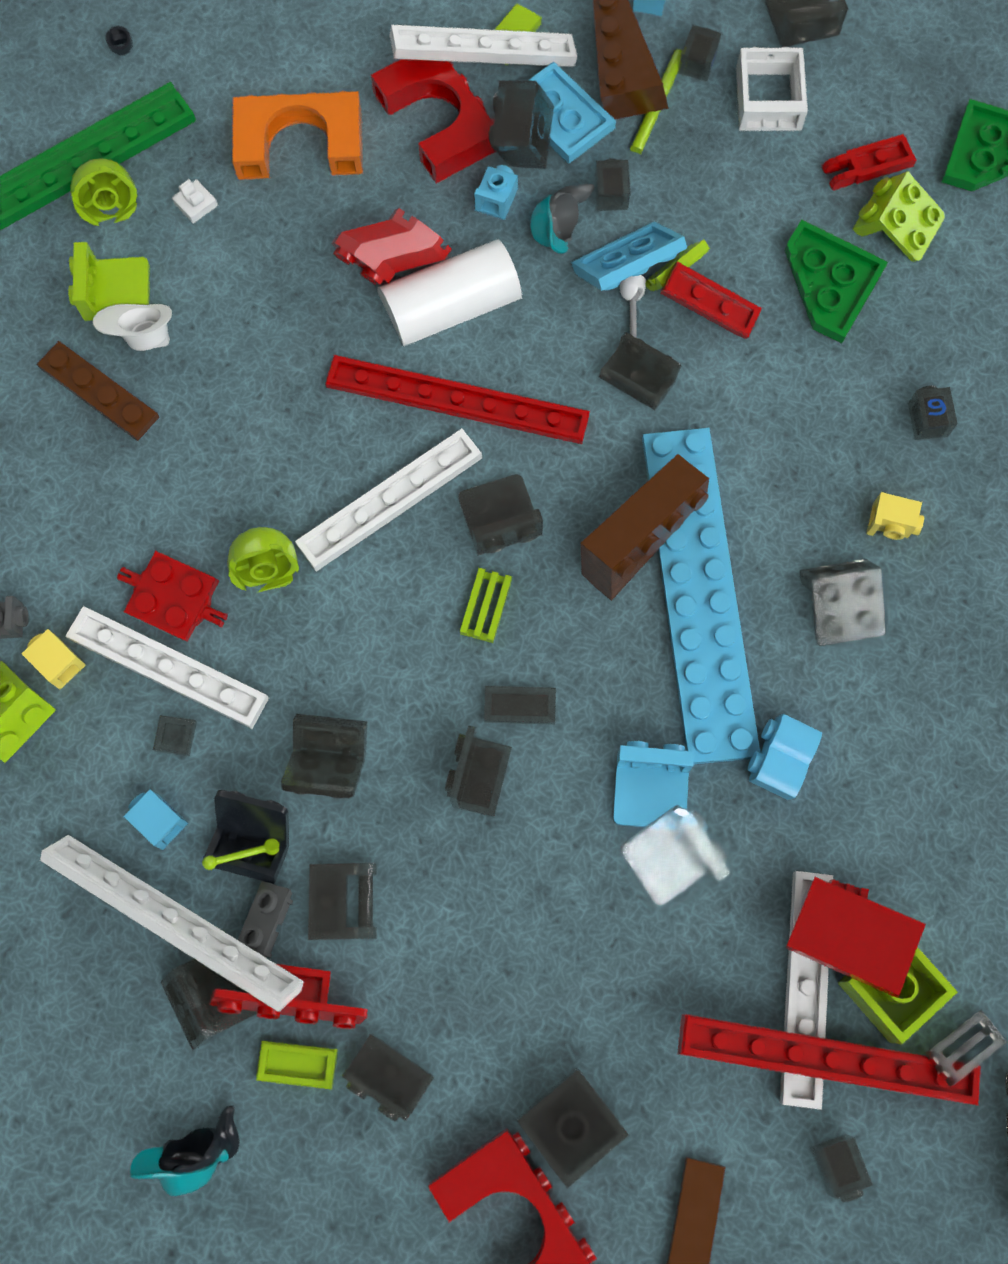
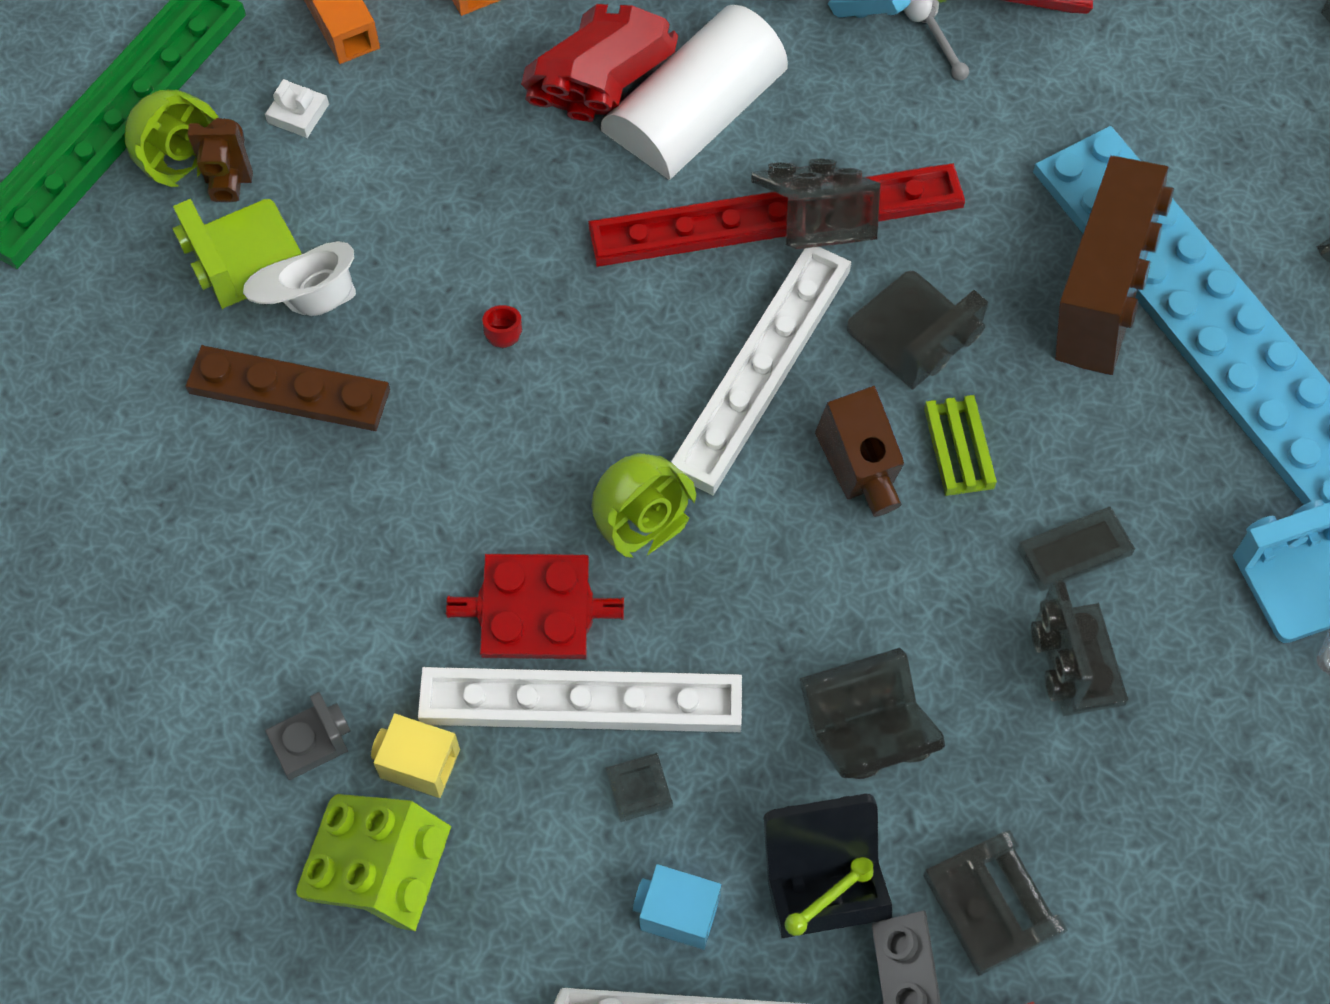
camera: 25 degrees left, 10 degrees down
(125, 218) = (221, 158): none -> reddish brown hips
(246, 400) = (502, 326): none -> red hinge
(414, 570) = (862, 449): none -> reddish brown torso
(482, 404) = (824, 202): none -> clear smoke bracket
(641, 371) = (991, 90): clear smoke bracket -> none

